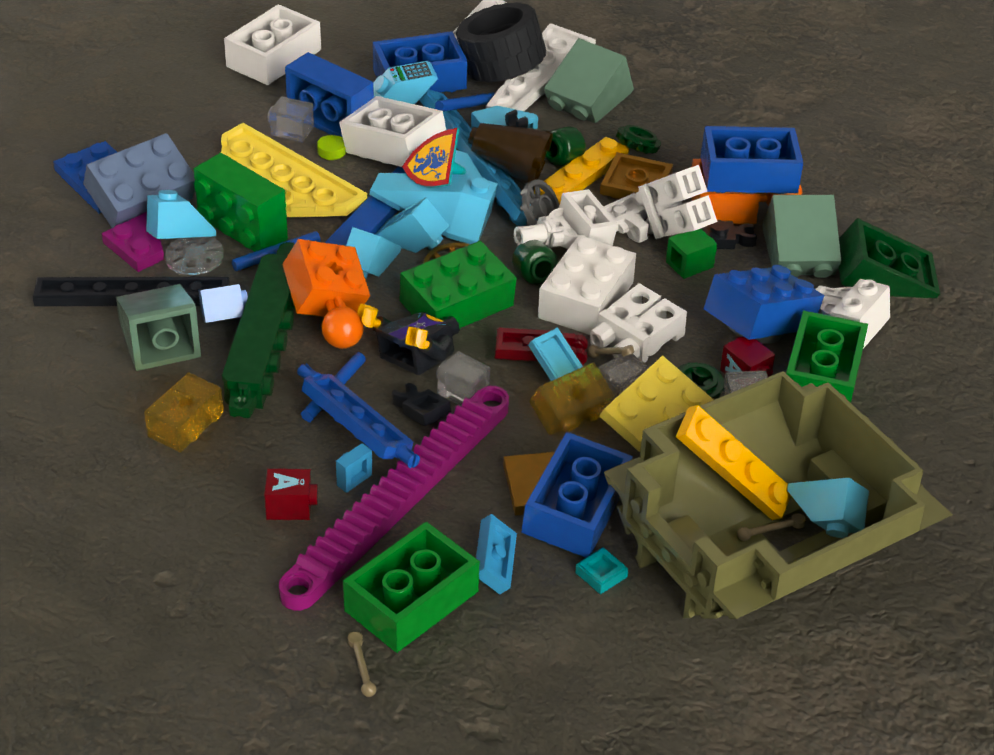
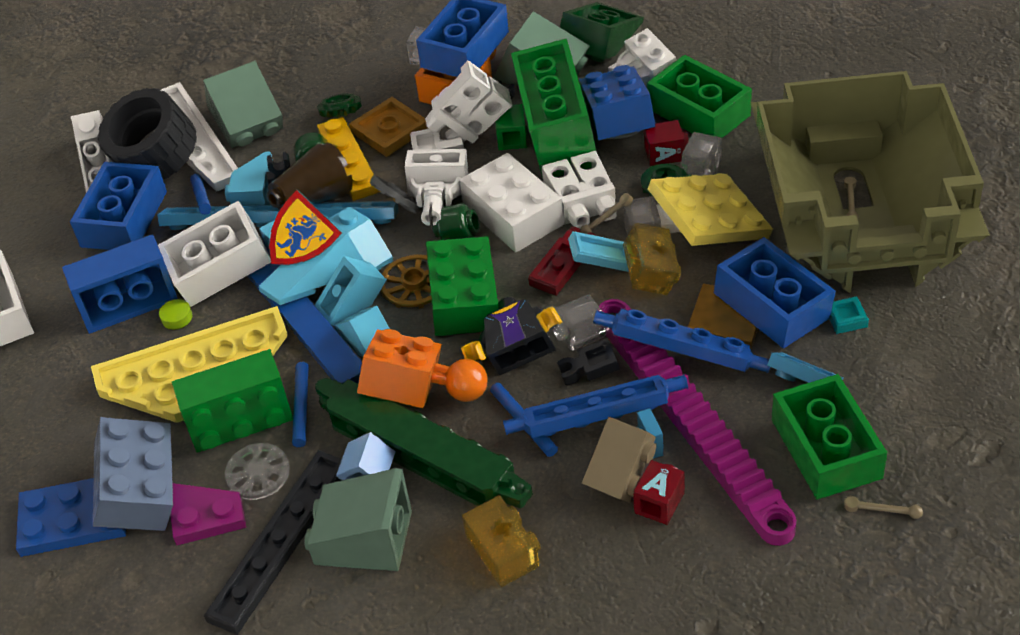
camera: 55 degrees left, 5 degrees up
(175, 217) = (214, 462): medium azure slope -> none
(291, 119) = (113, 328): clear brick -> none
(302, 445) = (619, 459): none -> dark tan brick
(405, 82) = (149, 217): medium azure slope -> none
(473, 447) = (683, 340): none -> blue plate
(712, 242) = (553, 104): none -> green brick
(734, 462) = (813, 176): yellow plate -> none
(833, 504) = (869, 149): medium azure slope -> none

